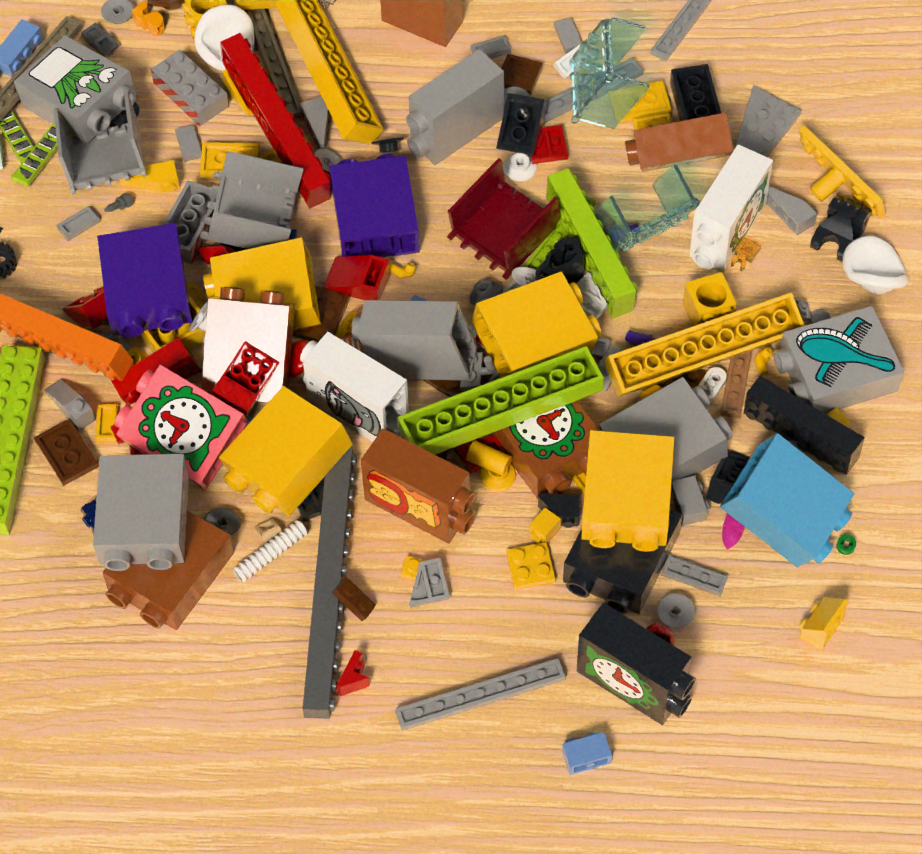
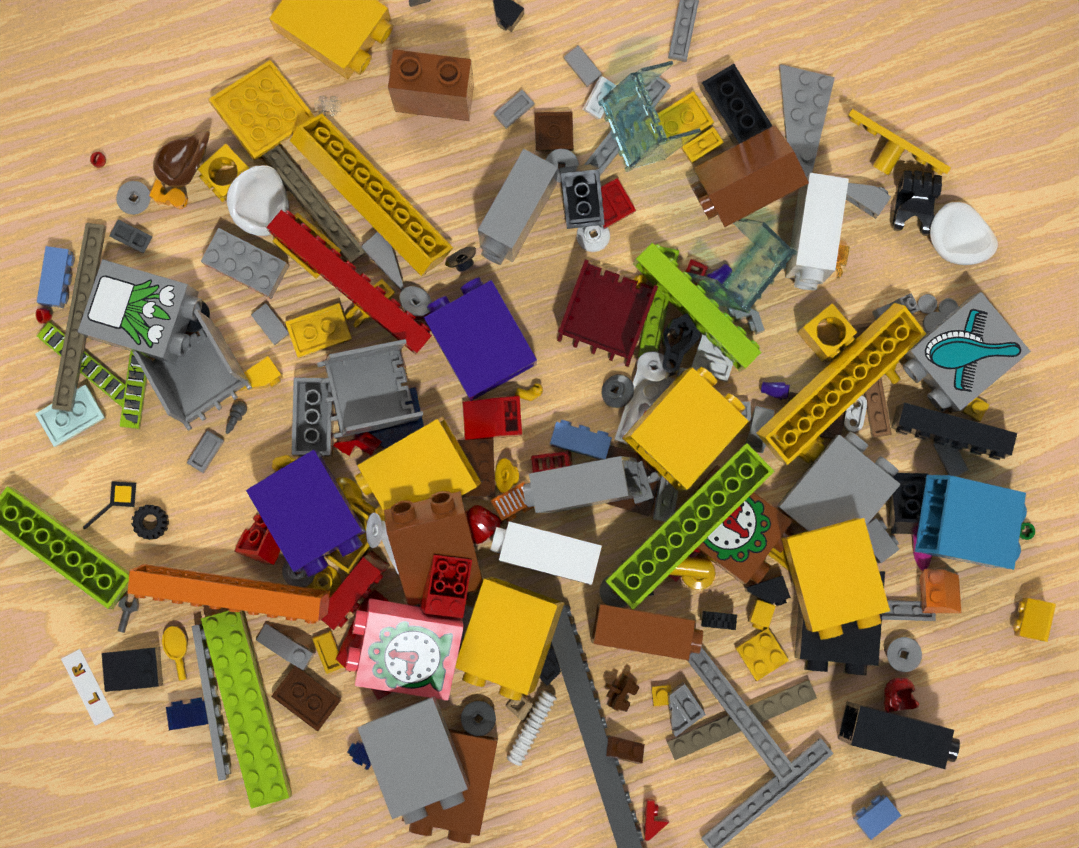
camera: 25 degrees left, 25 degrees up
(366, 556) = (618, 692): none -> reddish brown hips
(484, 618) = (726, 727): none -> dark tan plate
(485, 605) = (742, 716): none -> light grey plate
(498, 514) = (719, 620): none -> black tyre
(638, 269) = (755, 323): none -> light grey slope
(735, 564) = (940, 591): none -> orange slope

